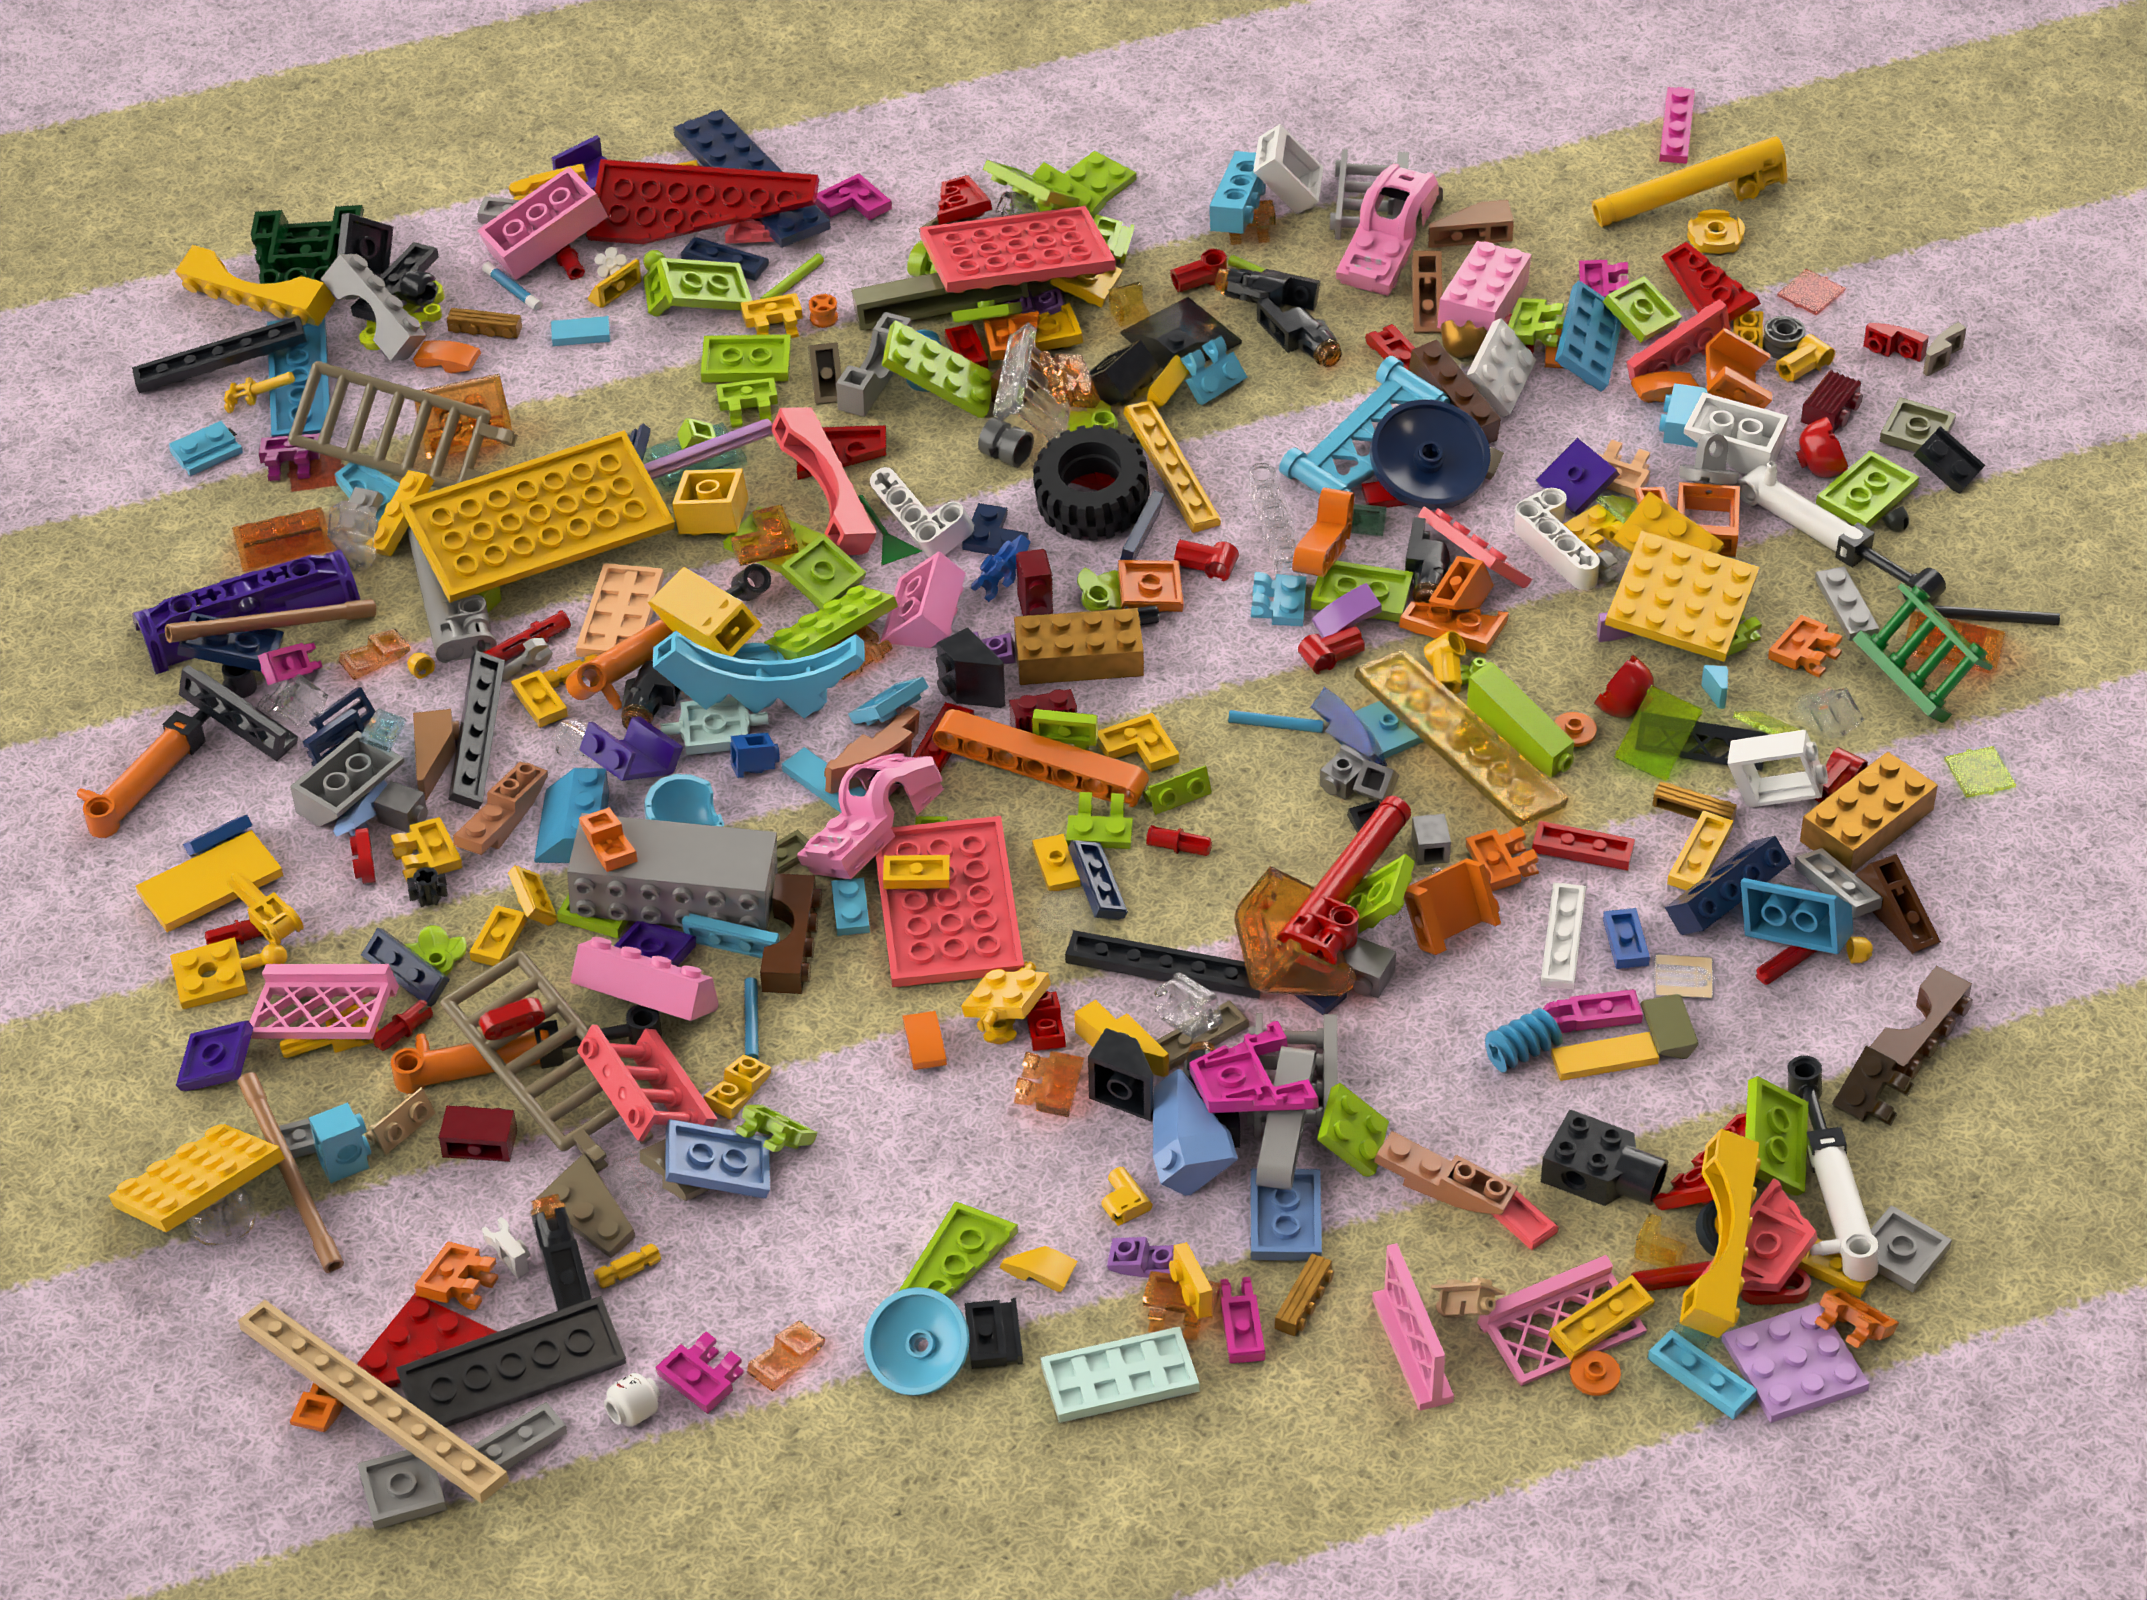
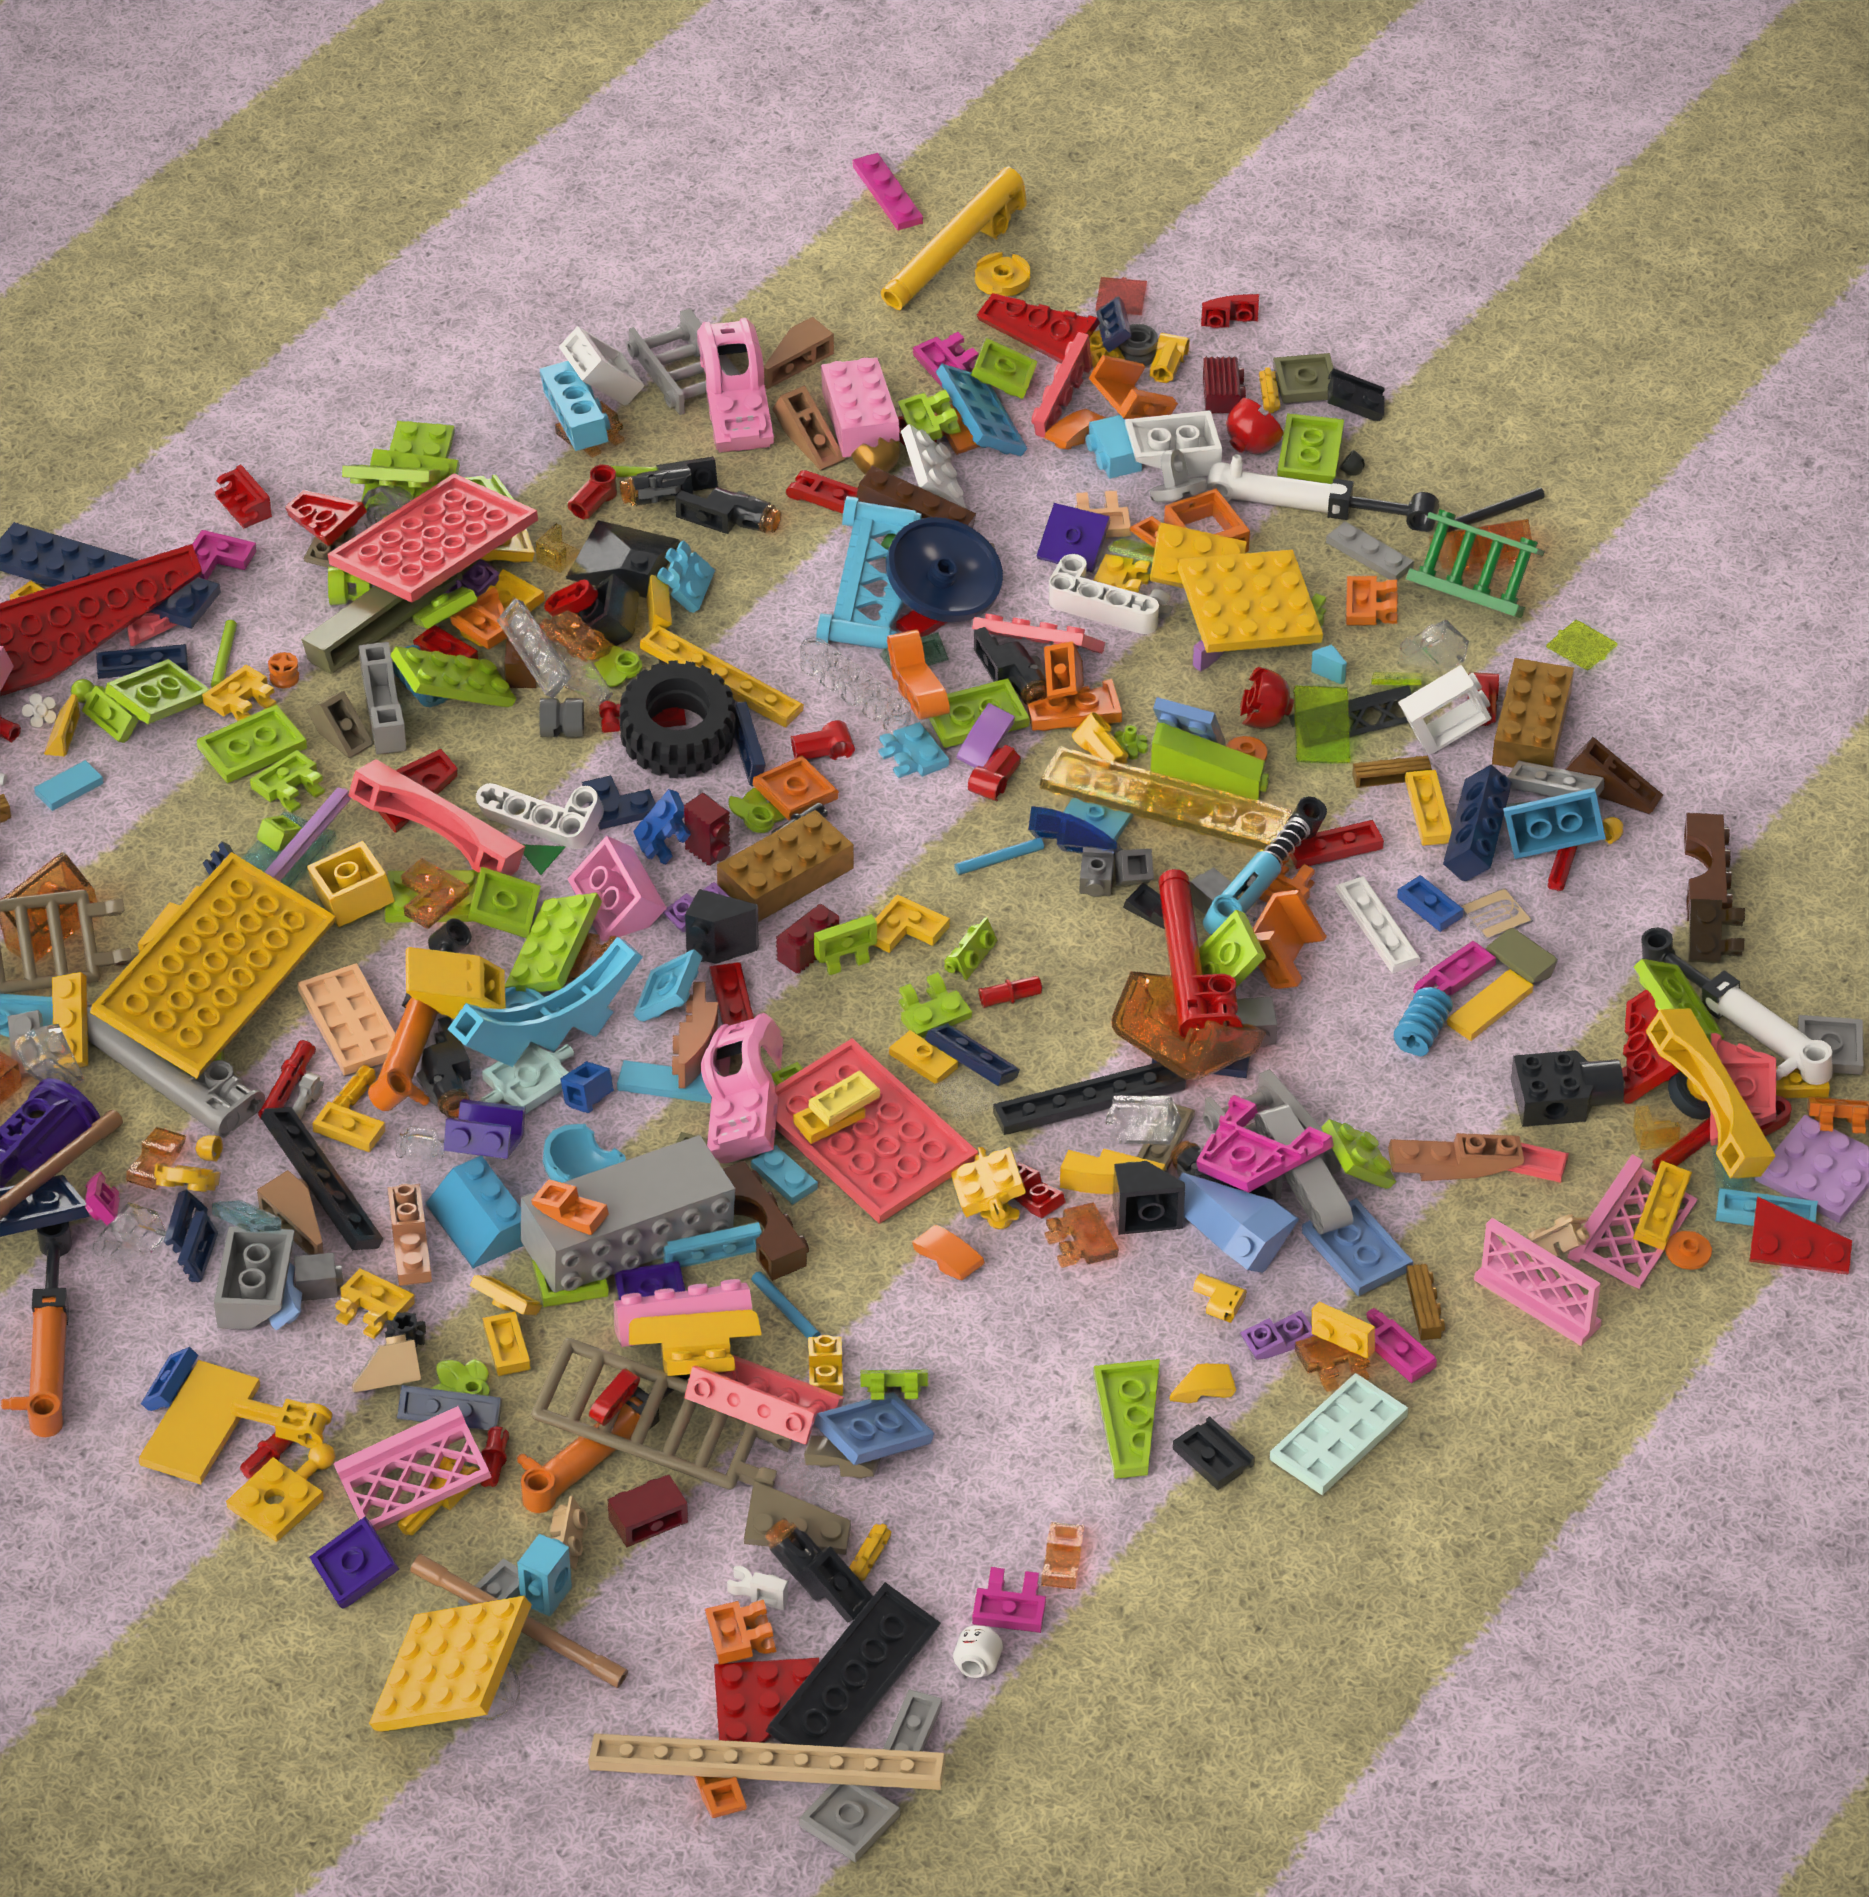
camera: 35 degrees left, 0 degrees up
(235, 713) = (90, 1266): black fence -> none
(364, 864) = (322, 1331): red plate -> none
(373, 678) = (197, 1178): none -> yellow plate
(386, 907) = (389, 1365): none -> tan slope
(626, 1007) = (695, 1338): none -> yellow plate
(897, 1330) = (1174, 1464): medium azure dish -> none
(916, 162) = (243, 497): none -> red hinge
(932, 860) = (844, 1098): none -> light yellow plate
(1039, 757) = (835, 975): orange beam -> none
(1099, 349) = (571, 598): none -> red beam
(1484, 833) = (1266, 864): none -> piece
(1524, 677) = (1189, 719): none -> medium blue plate
(1703, 1418) = (1796, 1242): none -> red wing
(1772, 309) = (1113, 324): none -> dark blue tile
(1874, 425) = (1269, 390): none -> yellow axle
(1942, 347) = (1274, 301): dark tan slope -> none

